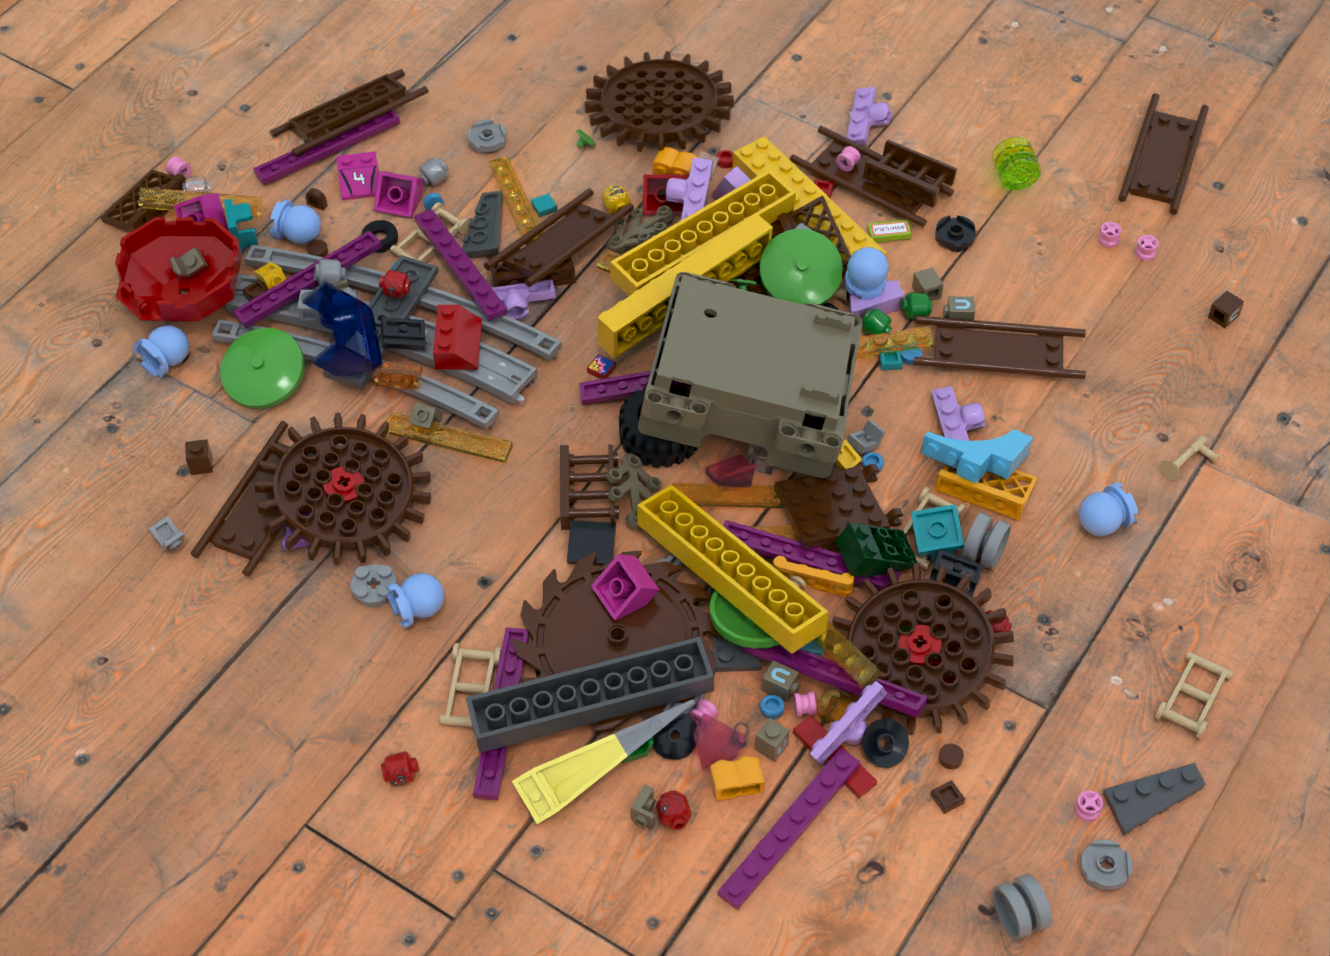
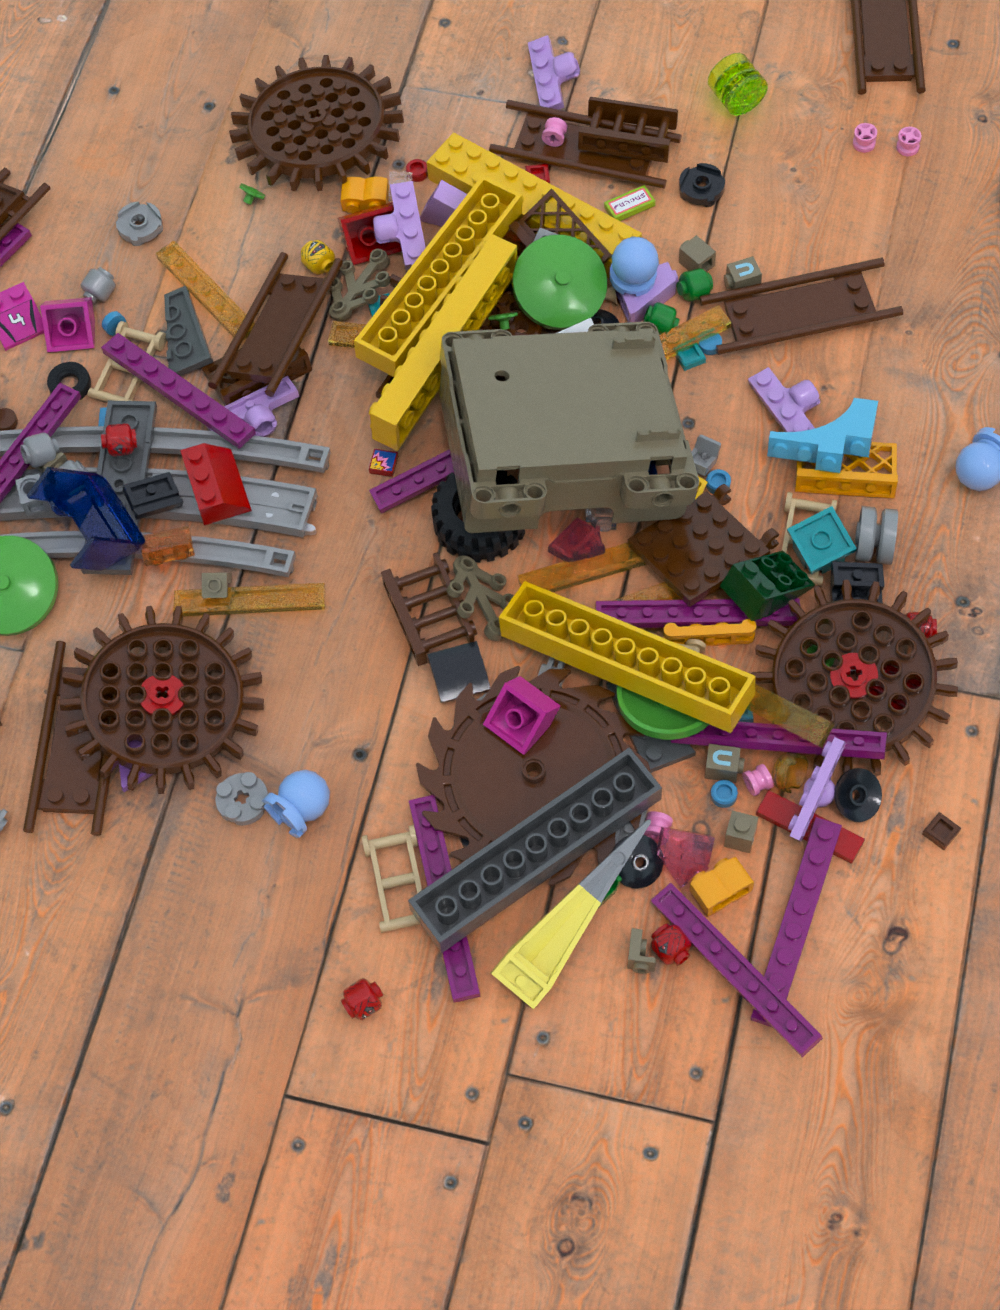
camera: 15 degrees left, 10 degrees up
(544, 205) = (238, 287): teal tile -> none
(720, 849) = (737, 970): none -> magenta plate
(951, 756) = (927, 785): reddish brown tile -> none

